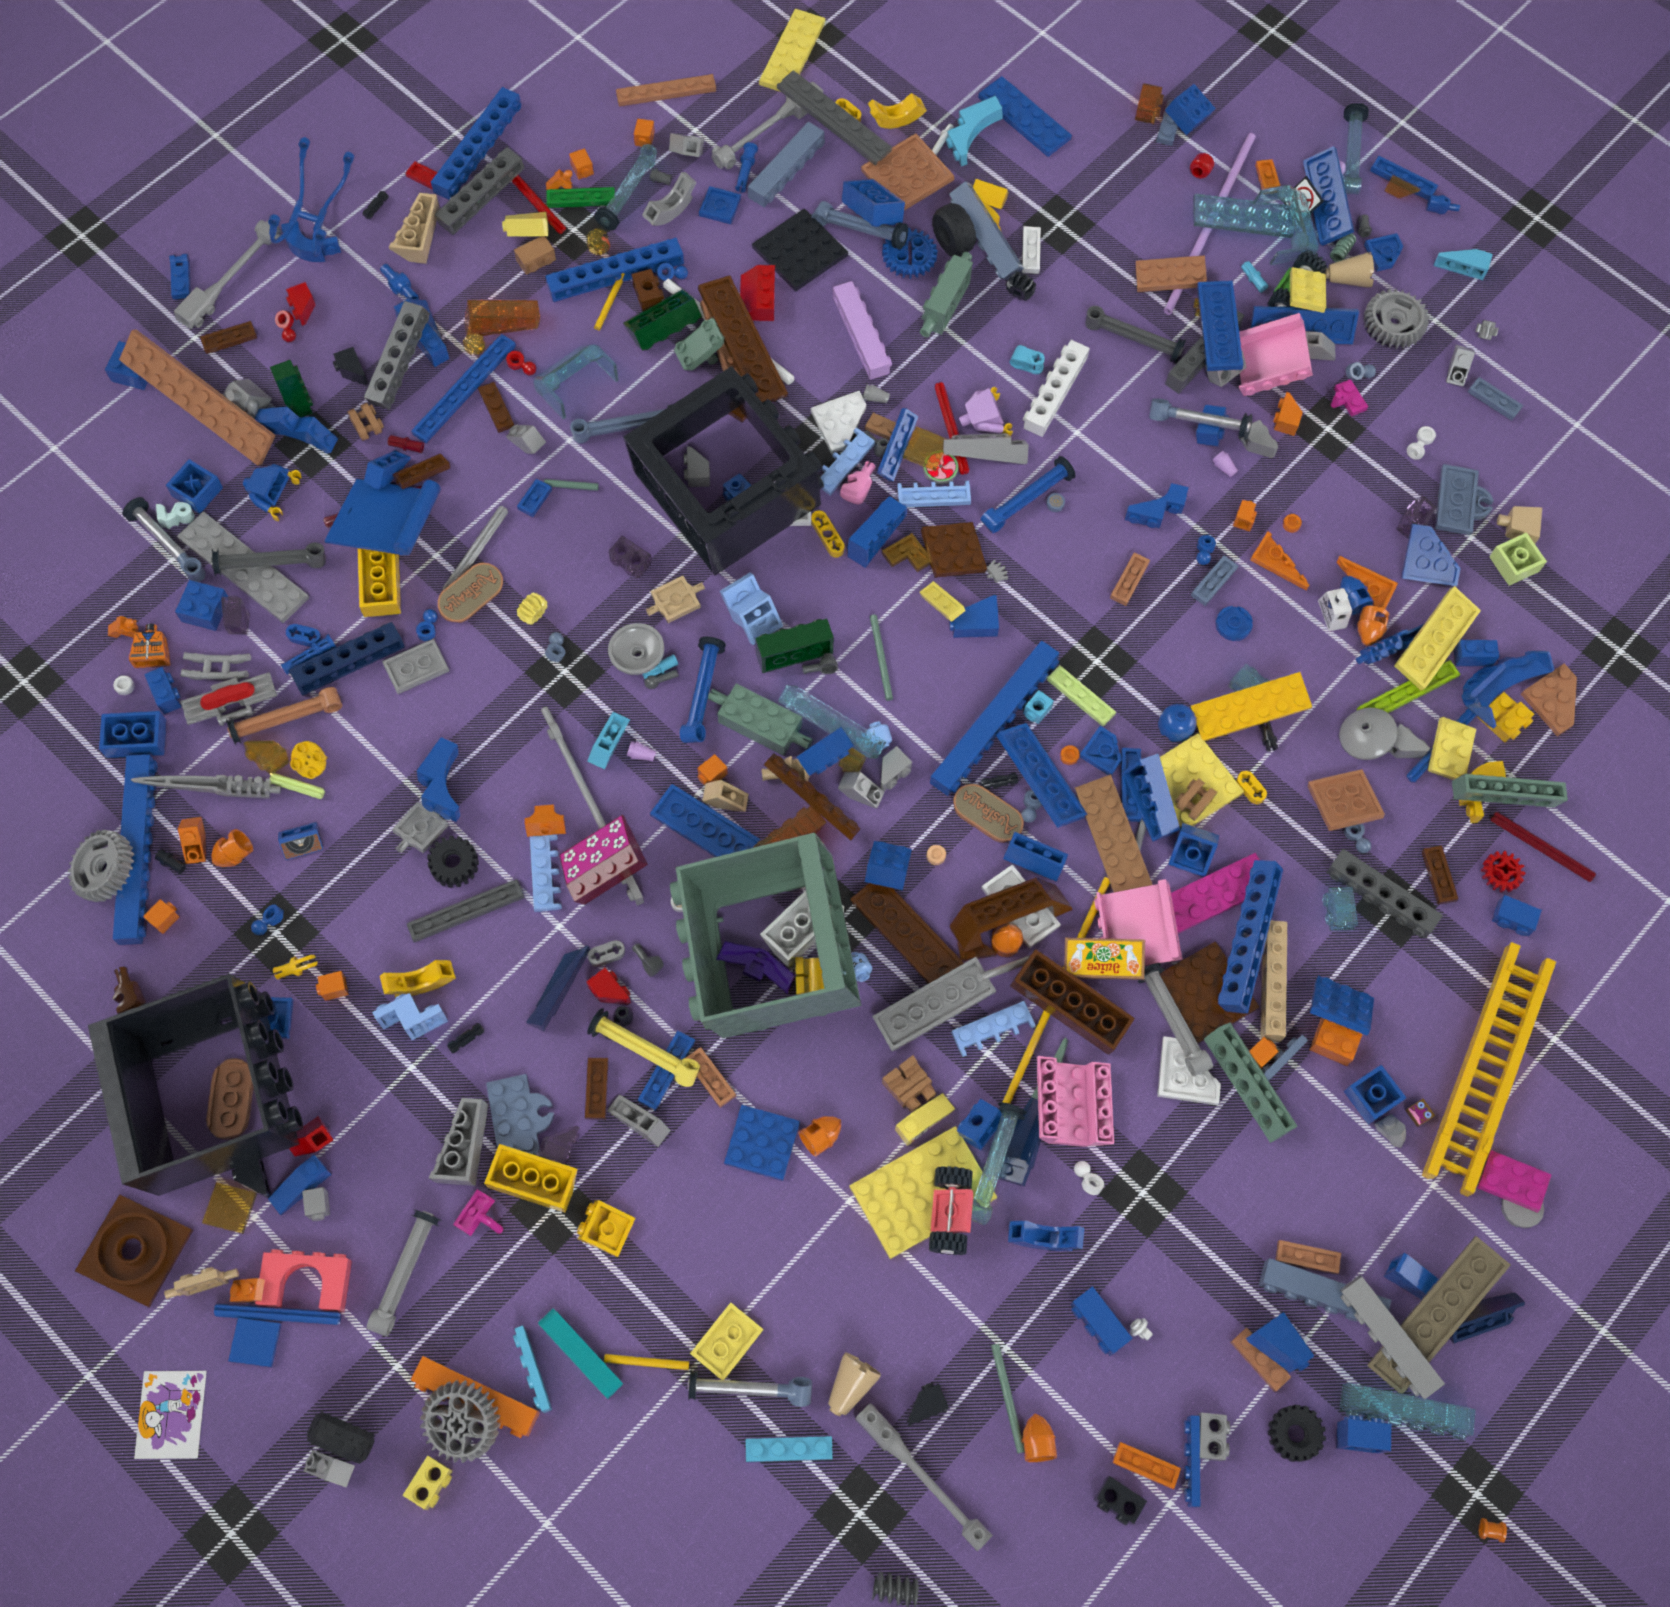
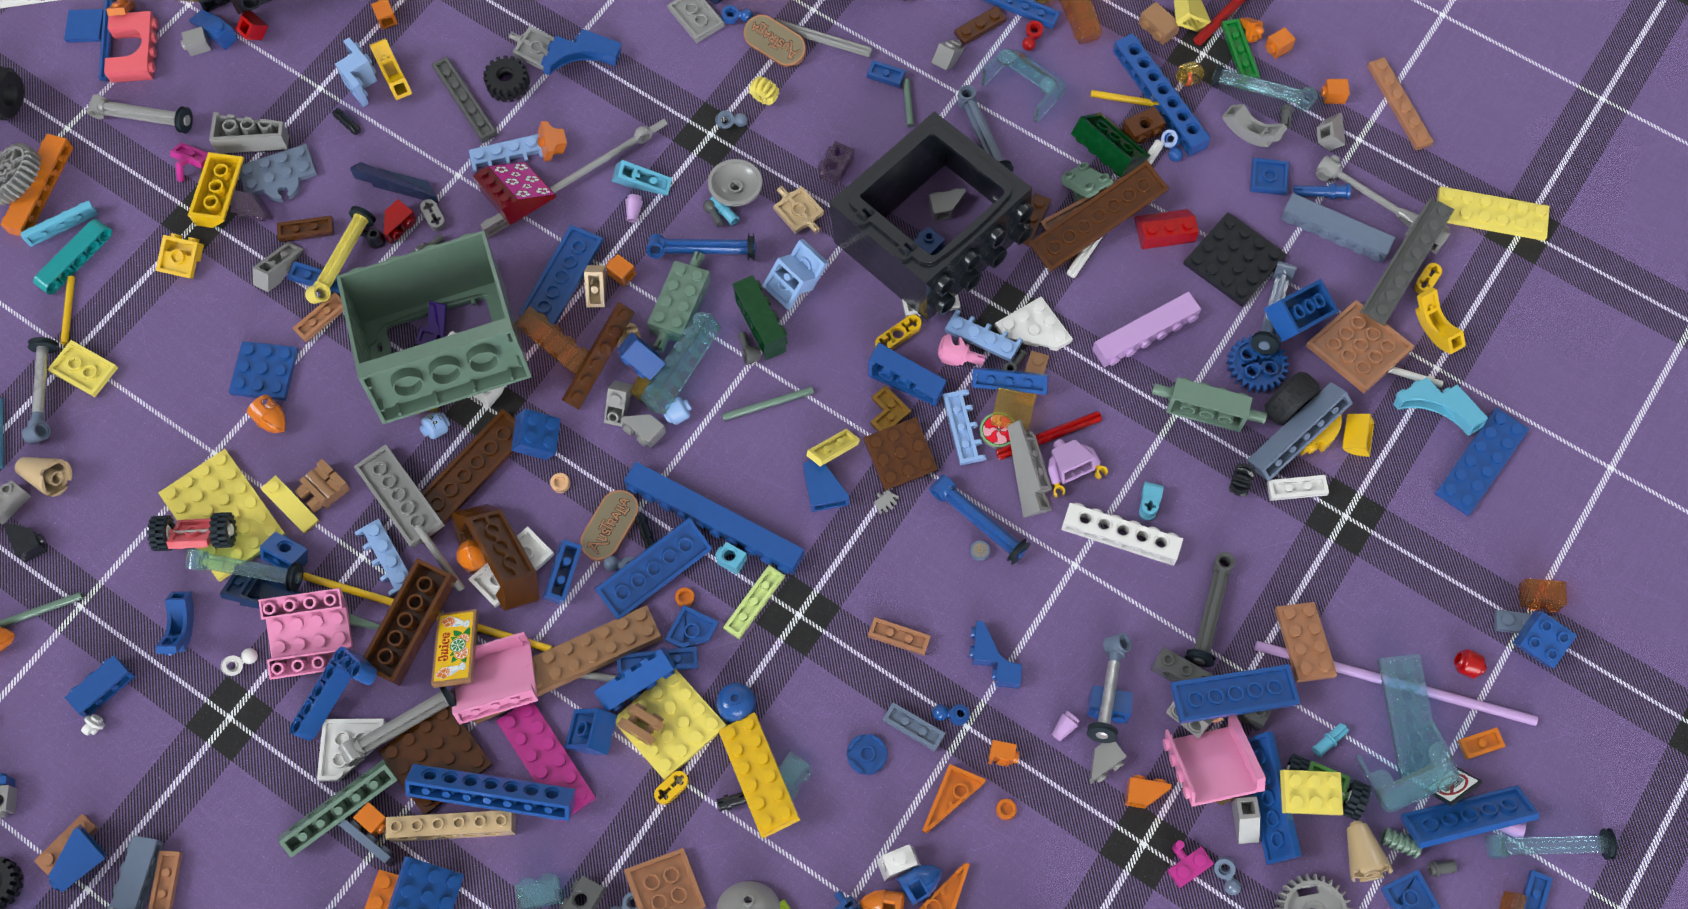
camera: 85 degrees right, 0 degrees up
(875, 394) = (1071, 354): light grey cone -> none
(1133, 1075) = (316, 708): none -> blue beam

